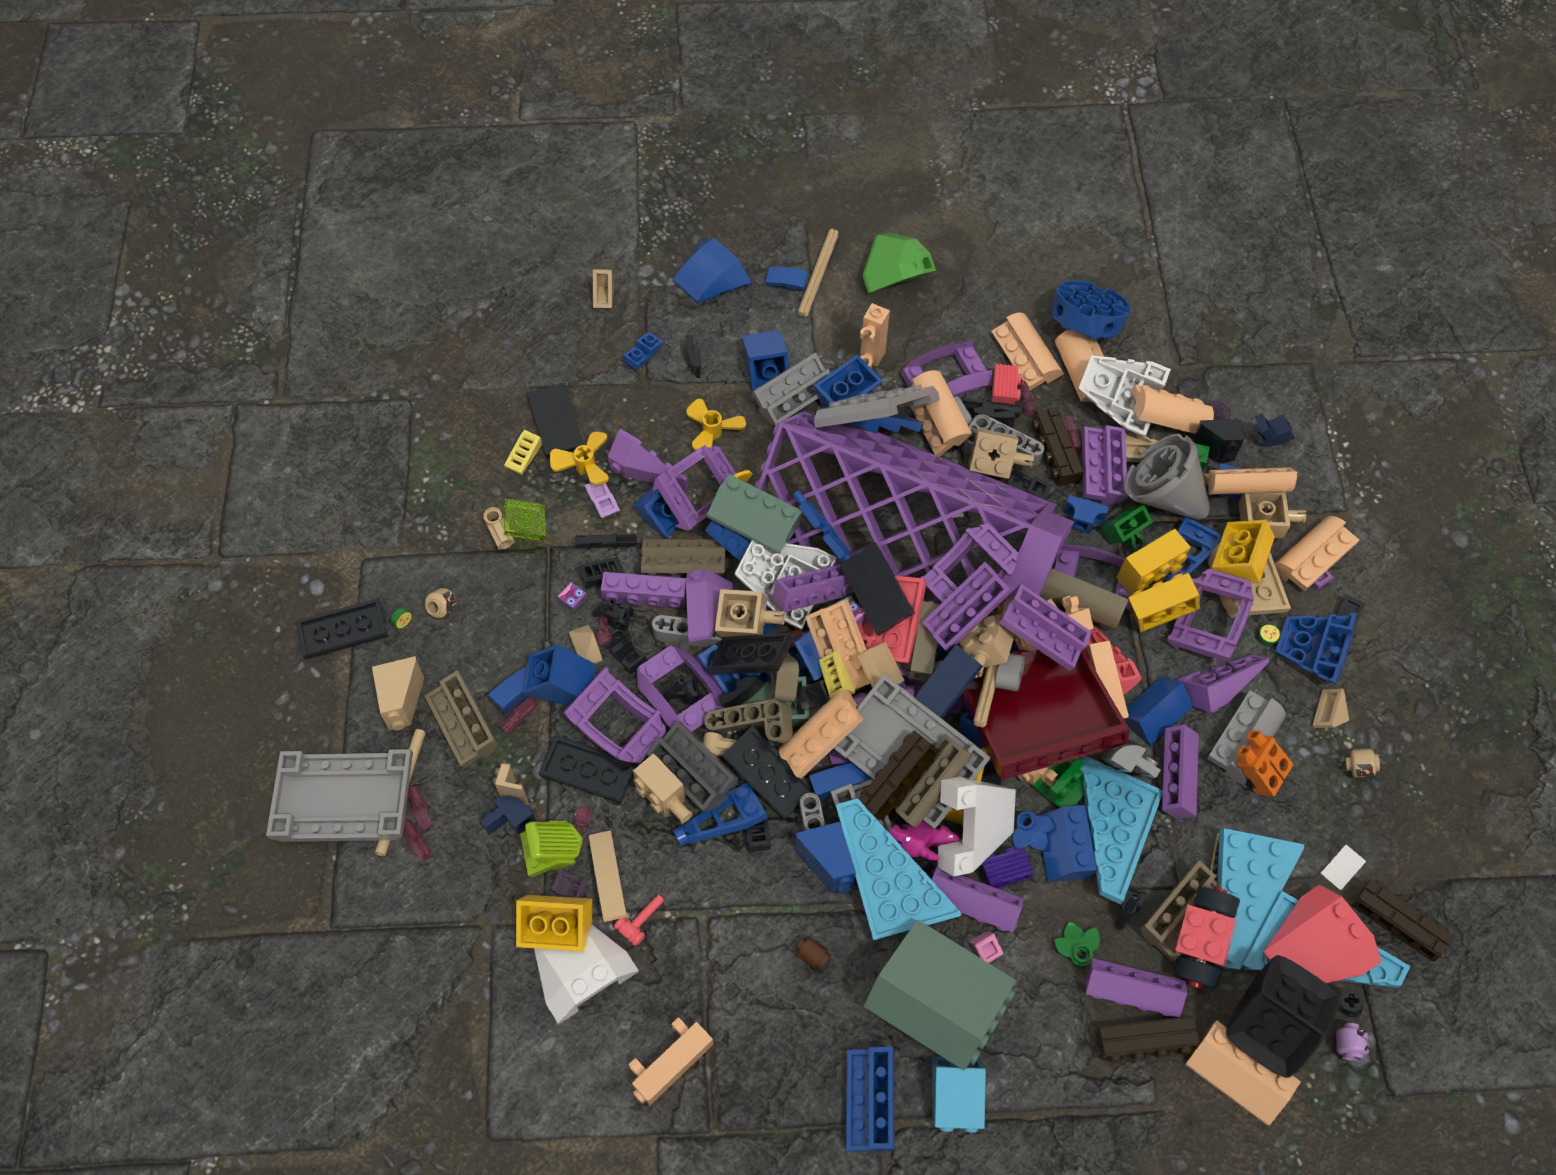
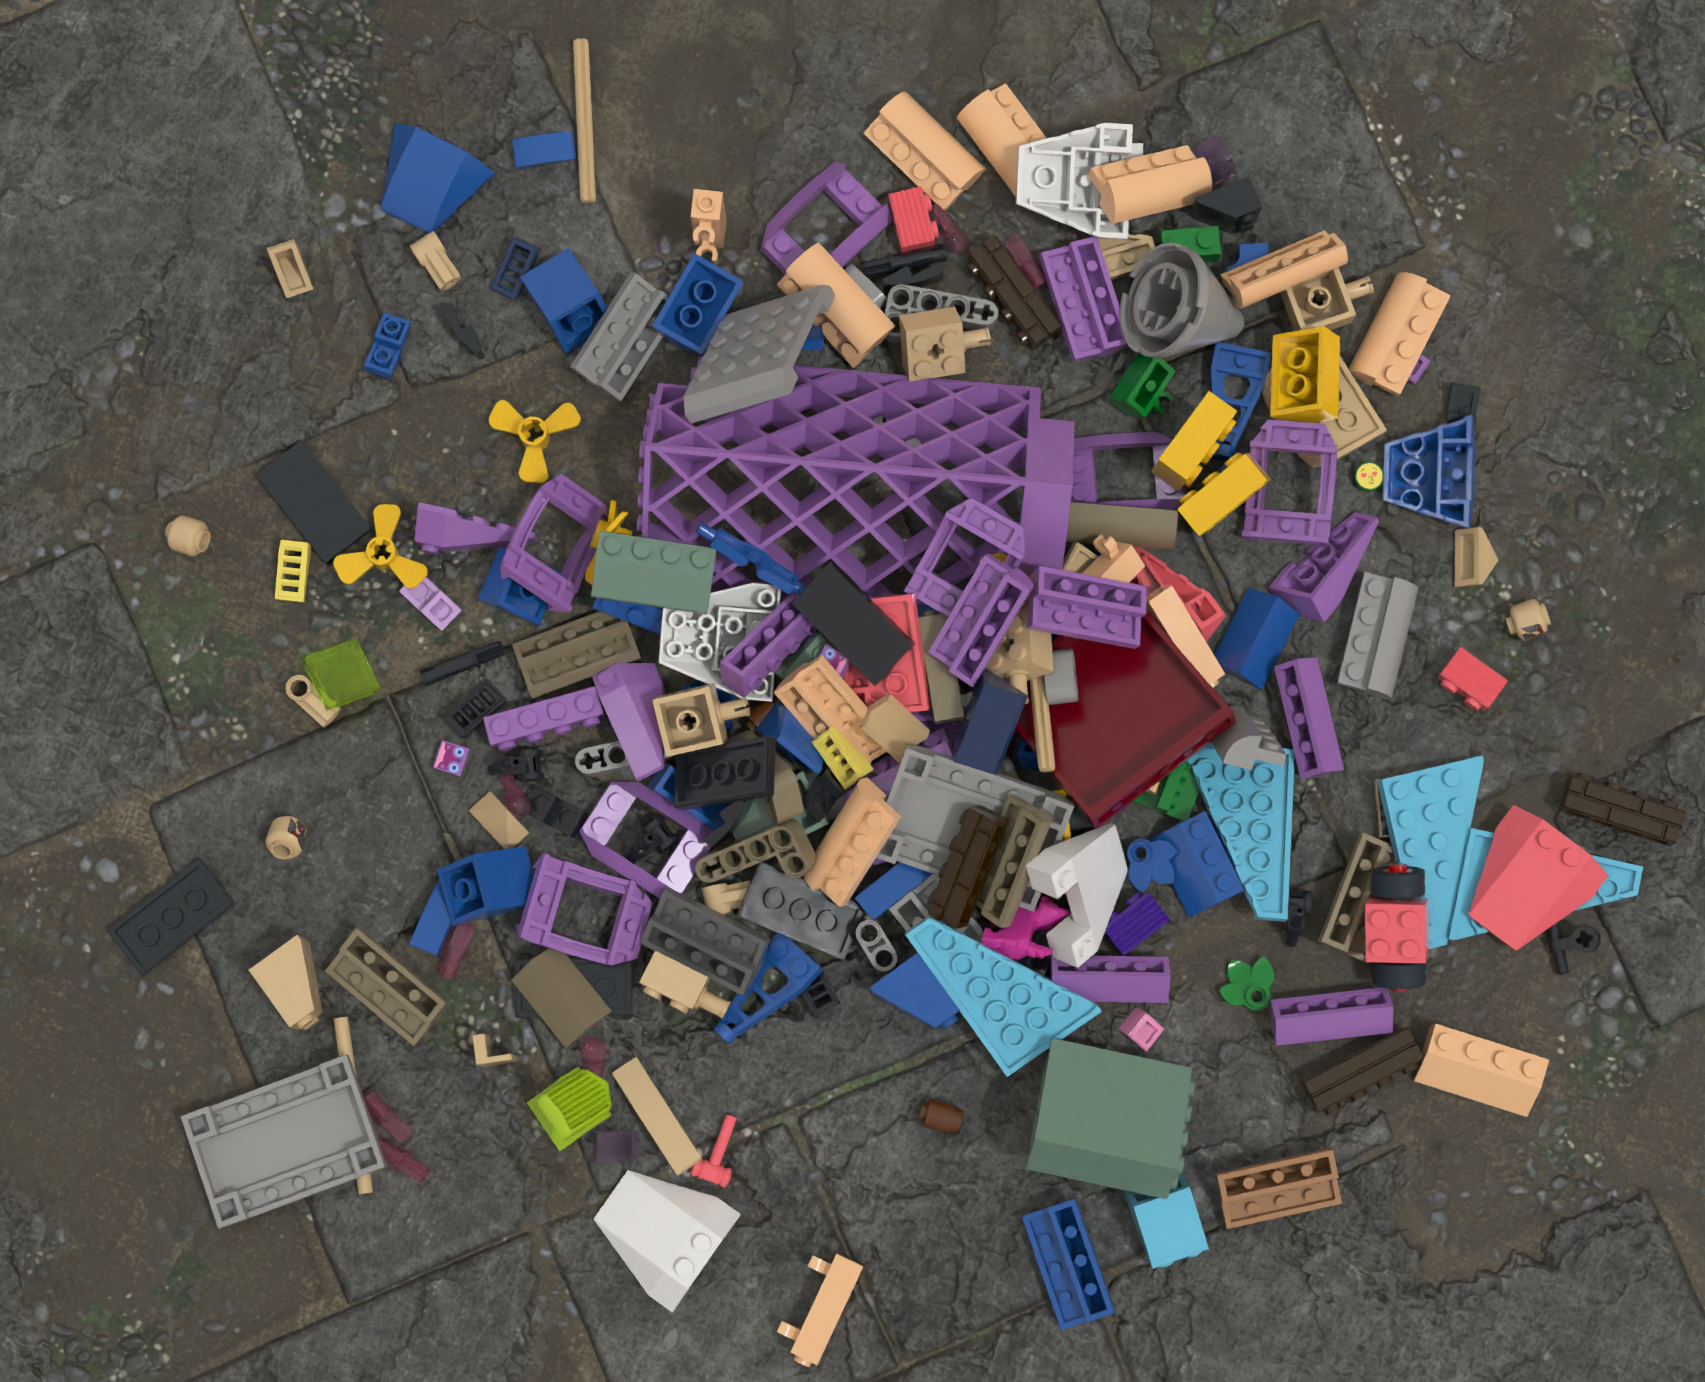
camera: 20 degrees left, 20 degrees up
(401, 618) = (243, 876): tile -> none
(467, 410) = (187, 535): none -> tan head
(509, 810) = (502, 1079): dark blue brick -> none
(553, 922) = (618, 1200): yellow slope -> none
(576, 768) = (561, 996): none -> dark tan slope
(693, 312) = (433, 257): none -> tan piece
(746, 322) = (511, 253): none -> dark blue slope
(894, 261) = (690, 69): bright green brick -> none
(1030, 485) = (993, 368): black slope -> none
(1054, 1103) = (1278, 1188): none -> medium nougat brick
(1085, 513) = (1081, 385): blue brick -> none
(1090, 309) = (992, 59): blue brick -> none
(1262, 763) = (1406, 670): orange hips -> none
(1273, 431) = (1296, 161): dark blue brick -> none
(1283, 1016) = (1509, 996): black piece -> none
(1309, 789) = (1471, 680): none -> coral brick
(1343, 867) = (1537, 764): white sticker -> none
(1352, 1042) = (1597, 985): lavender head -> none

